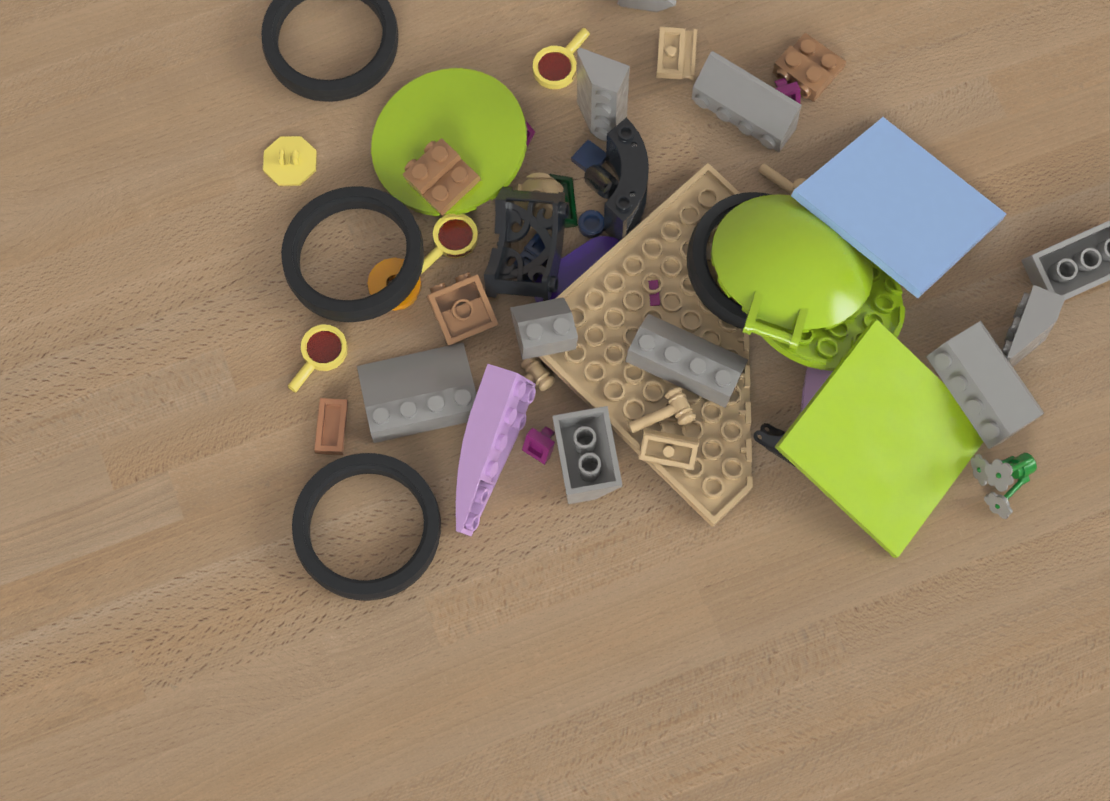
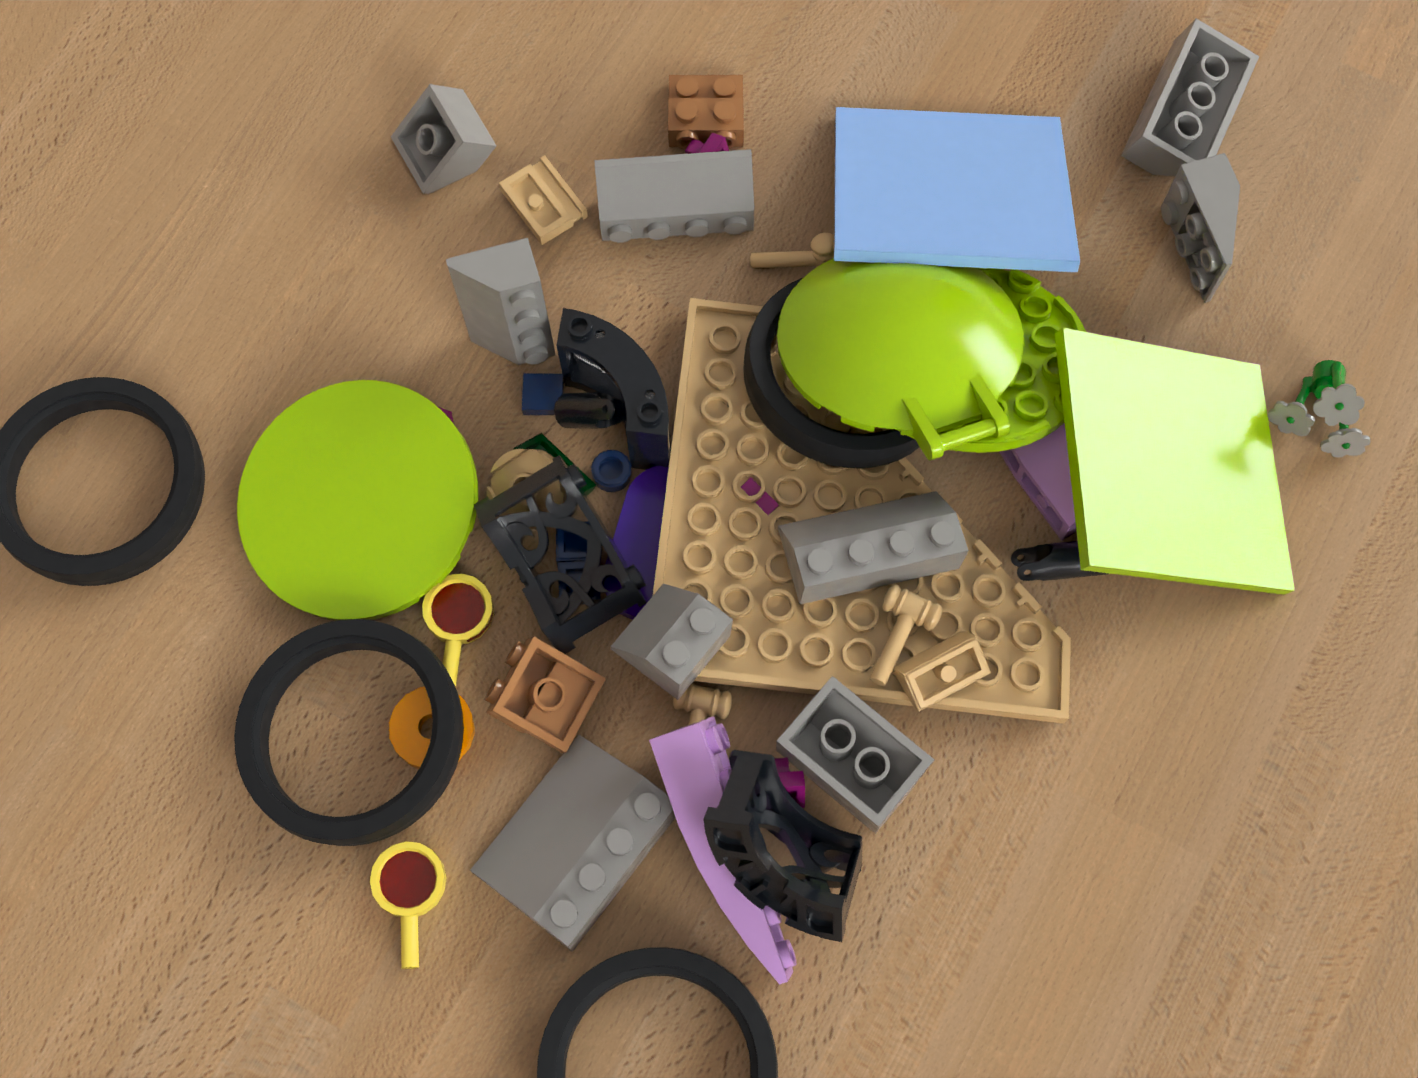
camera: 40 degrees left, 0 degrees up
(289, 161) = (167, 675): light yellow piece -> none
(331, 426) = (501, 975): nougat tile -> none
(440, 176) = (385, 549): medium nougat plate -> none
(529, 481) = (802, 892): none -> black fence
(555, 65) = (410, 315): piece -> none
(985, 385) = (1225, 317): light grey slope -> none

